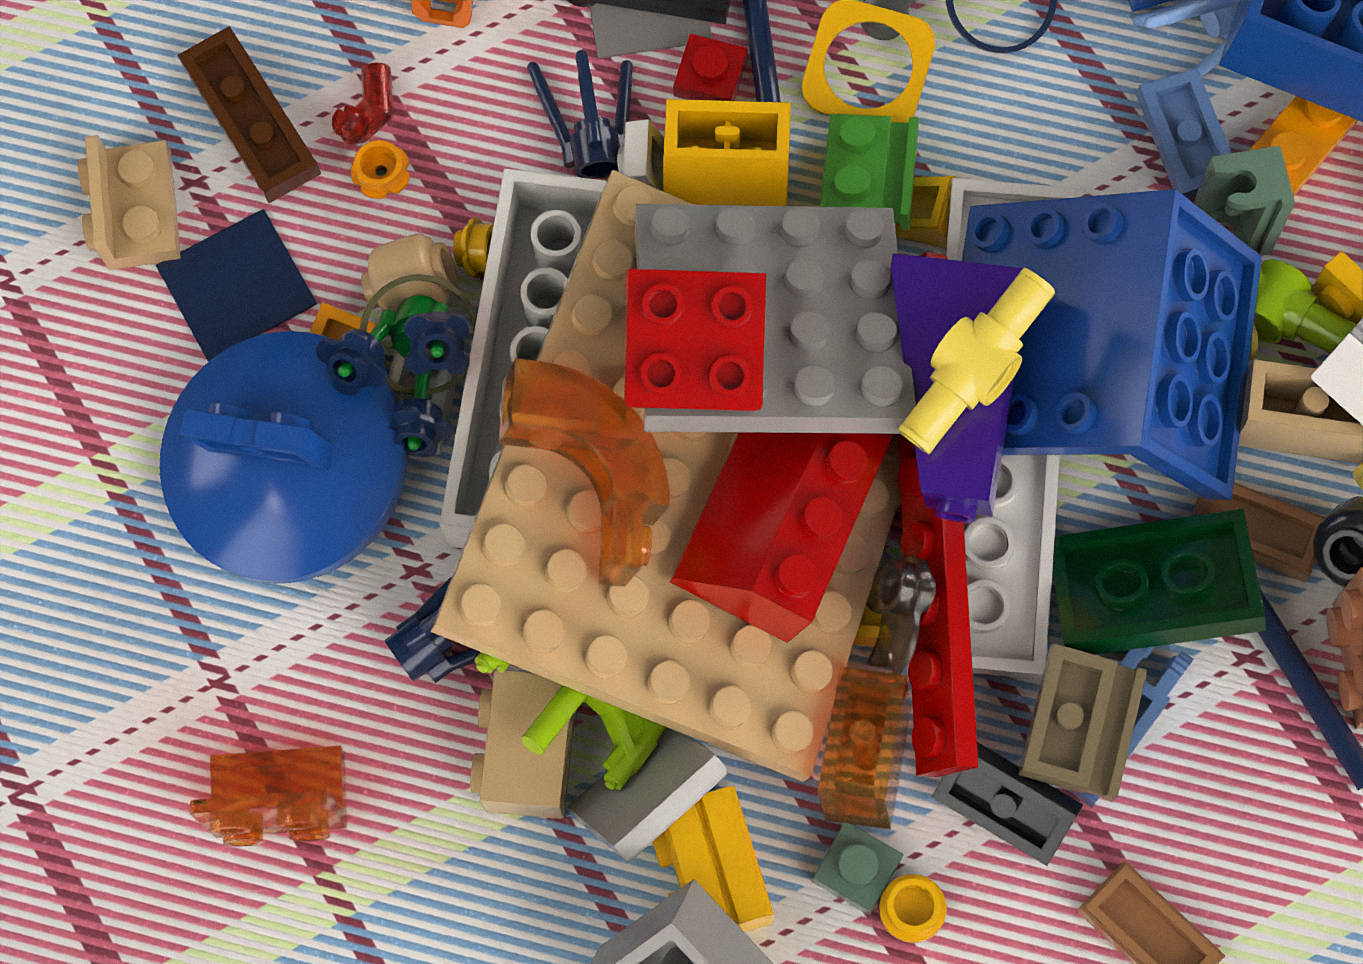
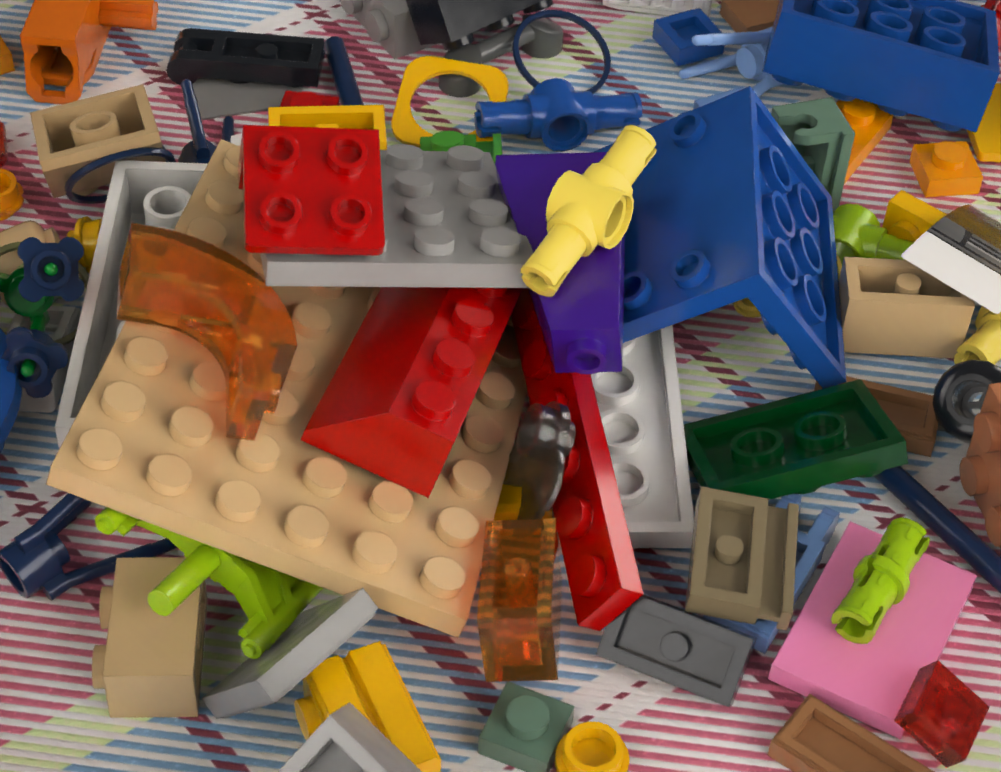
camera: 15 degrees left, 25 degrees down
(485, 121) = (89, 130): none -> tan slope
(517, 168) = (106, 160): none -> dark blue piece
(985, 91) = (557, 114): none -> blue pin
(1203, 788) = (875, 676): none -> bright pink tile
(1215, 751) = (880, 581): none -> lime pin
(1244, 896) = (942, 714): none -> clear red plate

